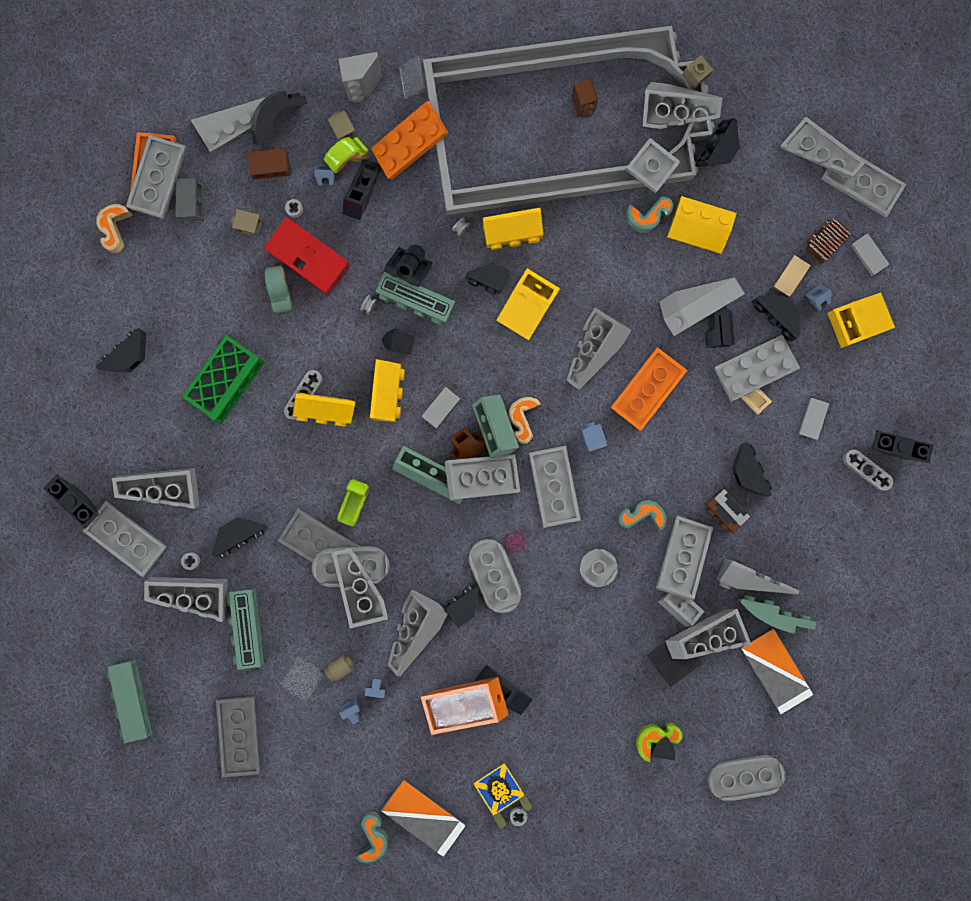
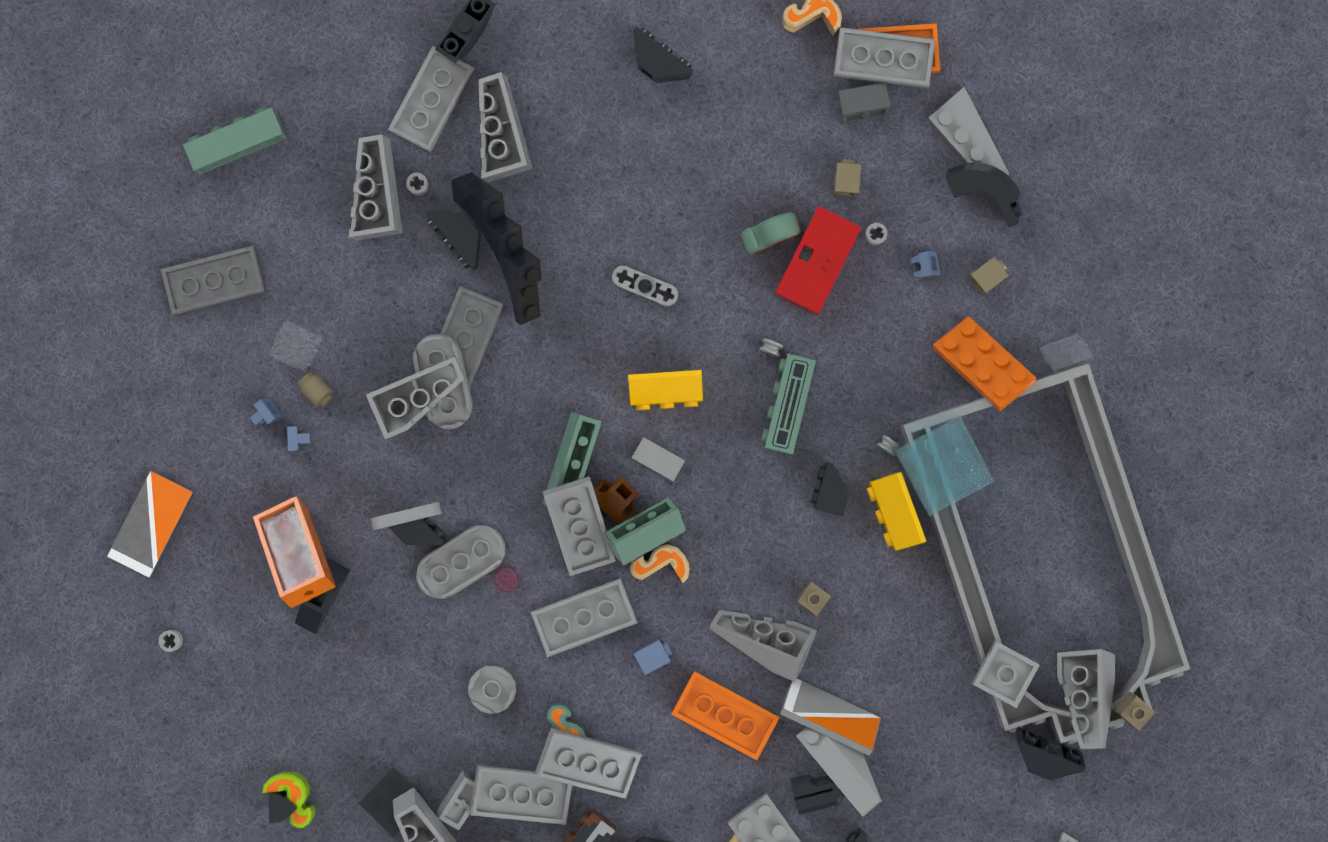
camera: 85 degrees right, 0 degrees up
(237, 386) = (638, 202): green fence -> none
(242, 497) = (505, 238): none -> black arch
(246, 629) = (345, 266): sand green brick -> none
(268, 163) = (926, 192): reddish brown brick -> none
(323, 409) = (631, 314): yellow slope -> none
(343, 151) = (955, 285): lime animal -> none
(353, 502) = (521, 371): lime animal -> none
(360, 75) = (1054, 288): light grey slope -> none
(360, 189) = (913, 313): black slope -> none
(376, 837) = (119, 470): sand green animal -> none
(398, 341) = (731, 392): black tile -> none
(409, 265) = (828, 389): black plate -> none
(420, 624) = (384, 479): light grey wedge -> none
(451, 612) = (406, 516): none -> light grey beam
(483, 183) = (944, 466): none -> clear light blue plate
(499, 791) = (197, 613): flag -> none
(528, 304) = (805, 546): yellow slope -> none
(569, 305) = (813, 598): none -> dark tan brick
(584, 98) = (1077, 574): reddish brown brick -> none
(647, 223) = (938, 683): sand green animal -> none
(663, 306) = (831, 716): none -> tile
(668, 501) = (588, 763): none -> light grey tile
(701, 225) = (943, 748): yellow slope -> none

